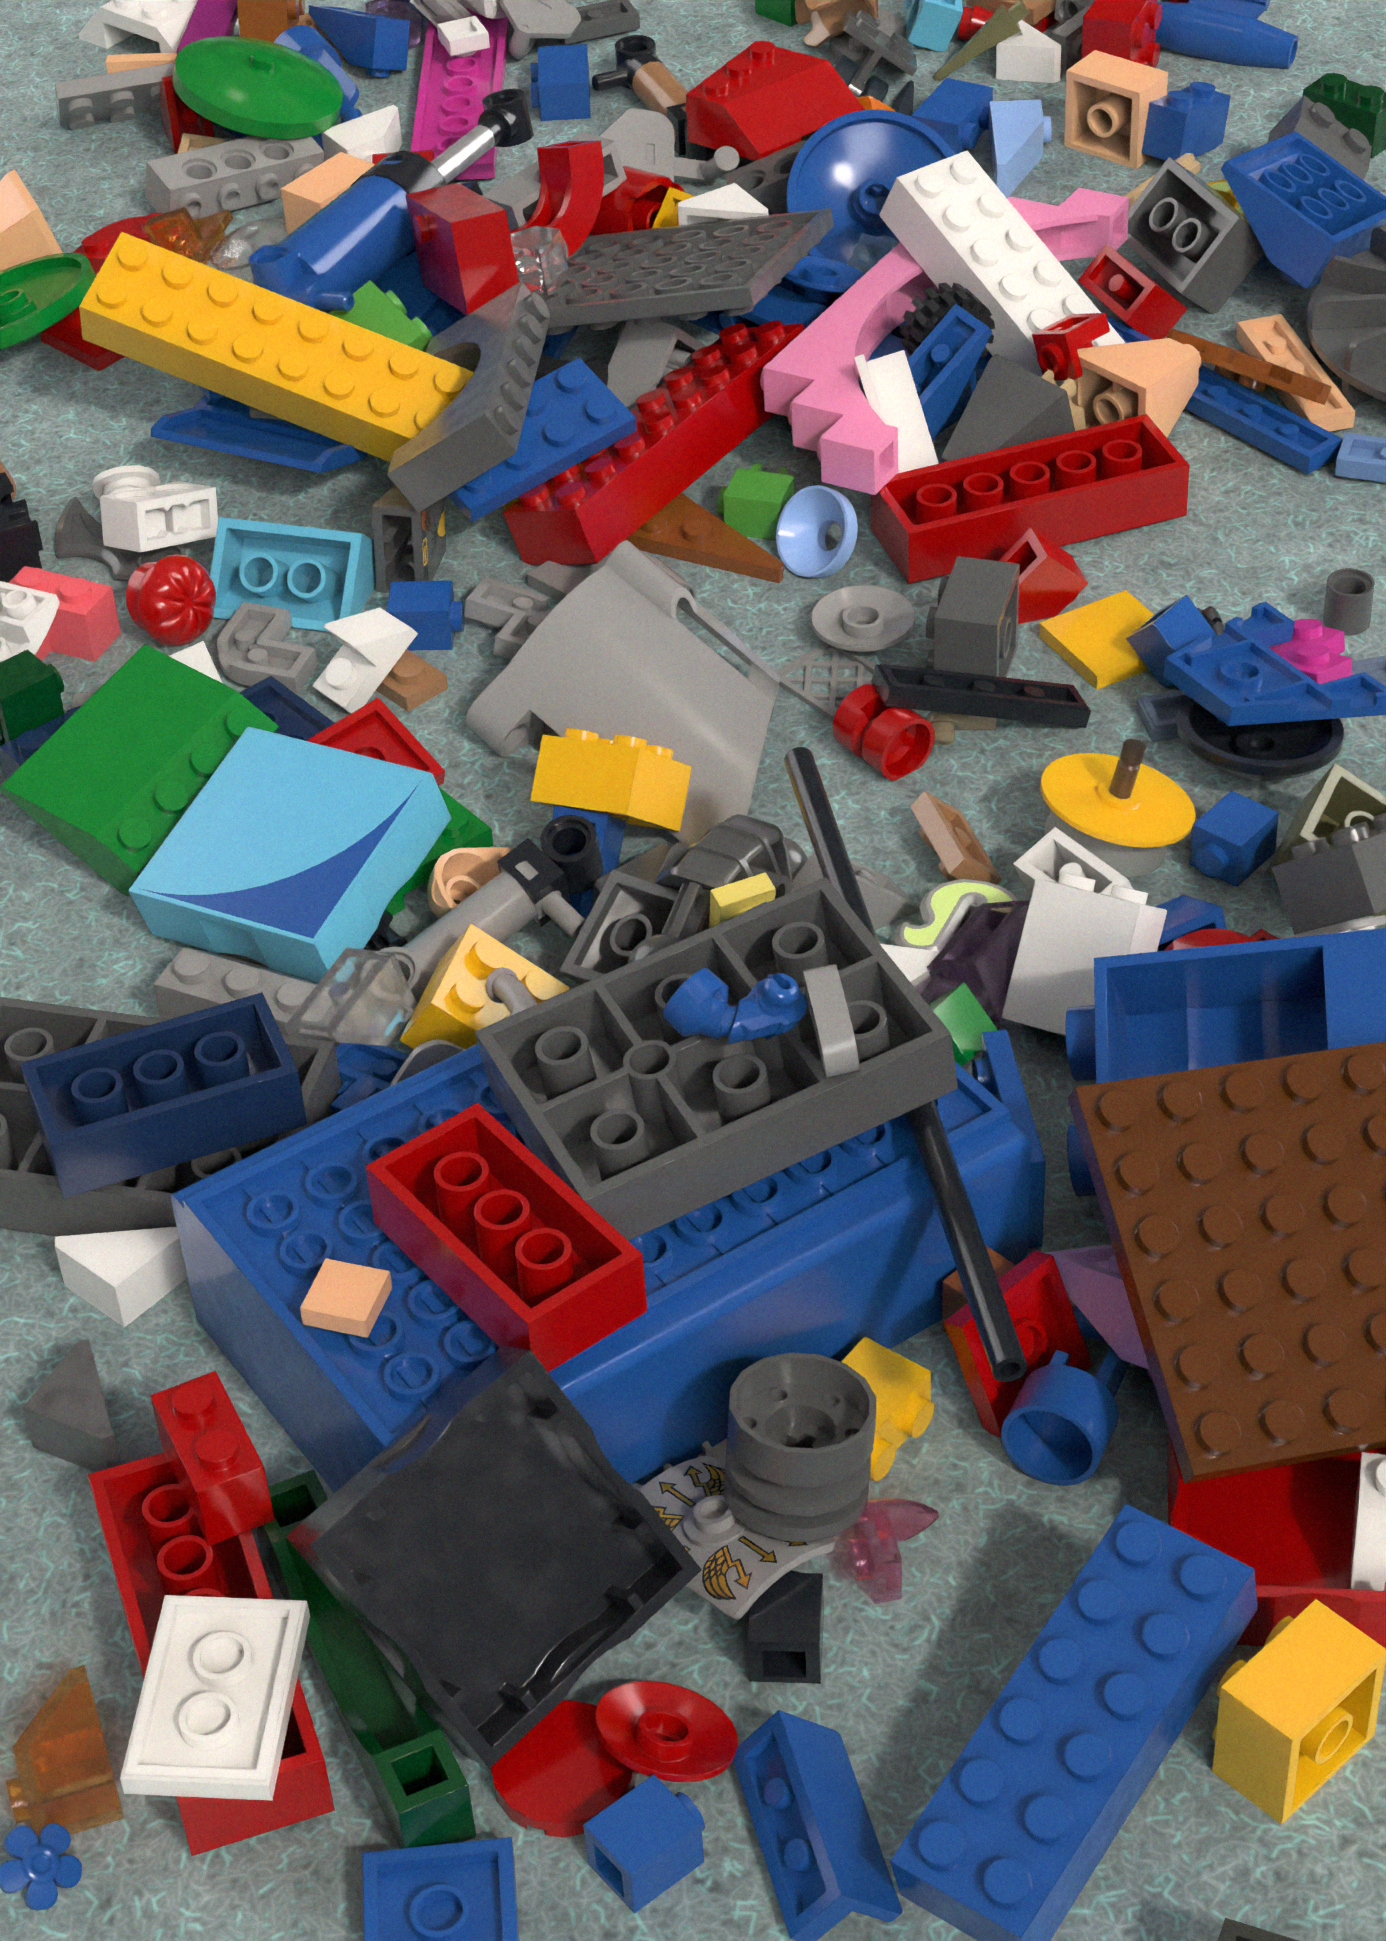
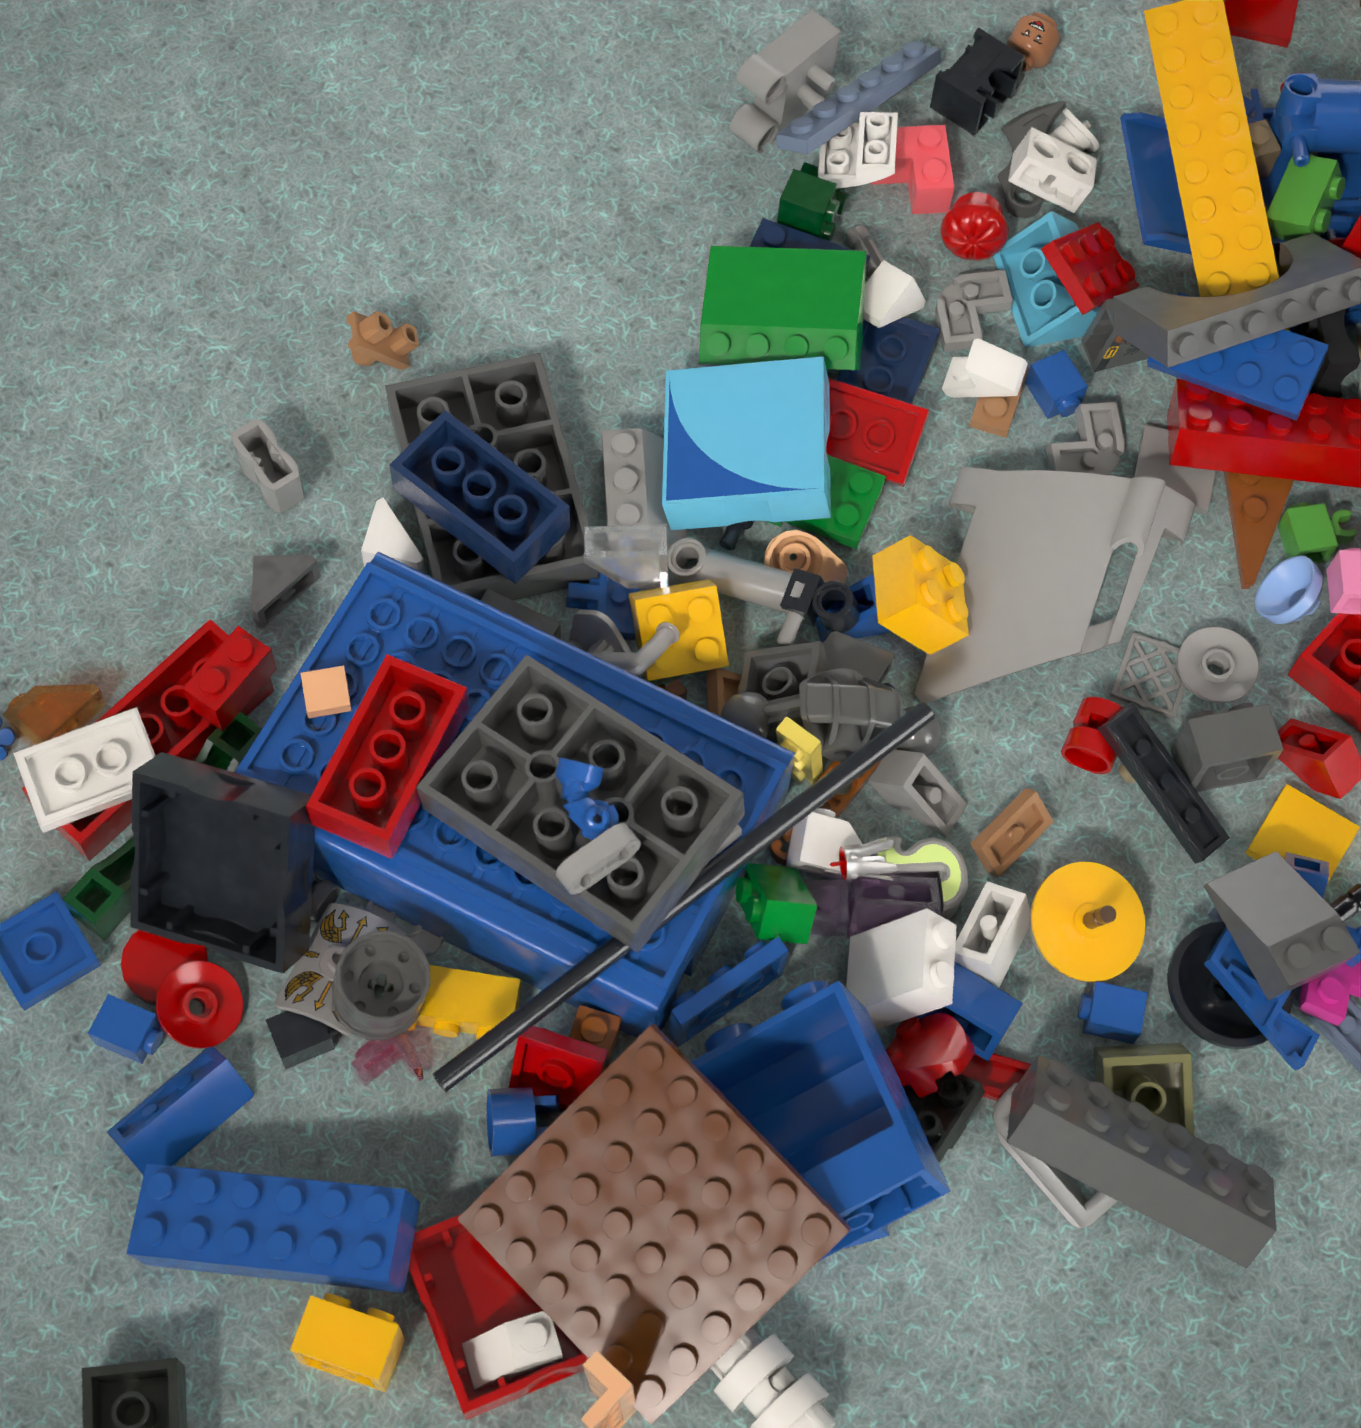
camera: 55 degrees right, 25 degrees up
(297, 509) = (1090, 266): none -> red plate
(921, 946) = (856, 862): none -> flat silver piece
(1231, 635) = (1280, 924): none -> dark grey slope

